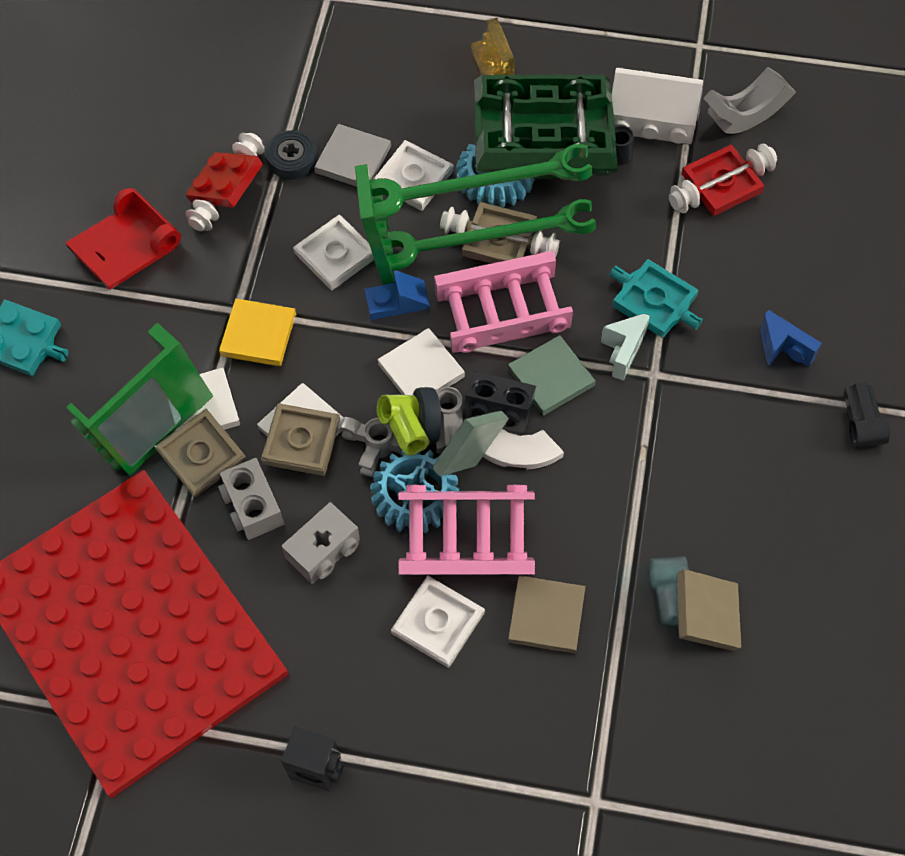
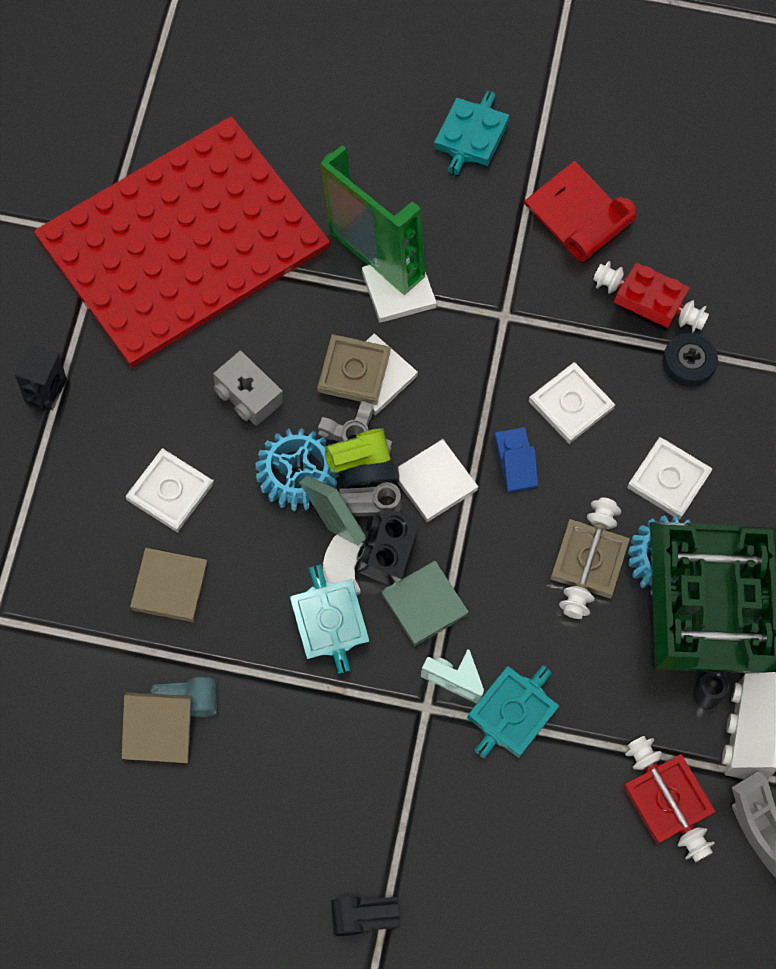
camera: 85 degrees right, 5 degrees up
(200, 452) = (345, 286): dark tan tile -> none
(255, 497) = (298, 336): light grey brick -> none
(257, 332) = (474, 331): yellow tile -> none
(349, 149) = (690, 419): light grey tile -> none
(375, 211) = (573, 426): green piece -> none
(483, 560) = (219, 502): bright pink fence -> none
(496, 276) = (528, 537): bright pink fence -> none
(578, 452) = (329, 619): none -> plate
(783, 336) = (462, 834): blue slope -> none

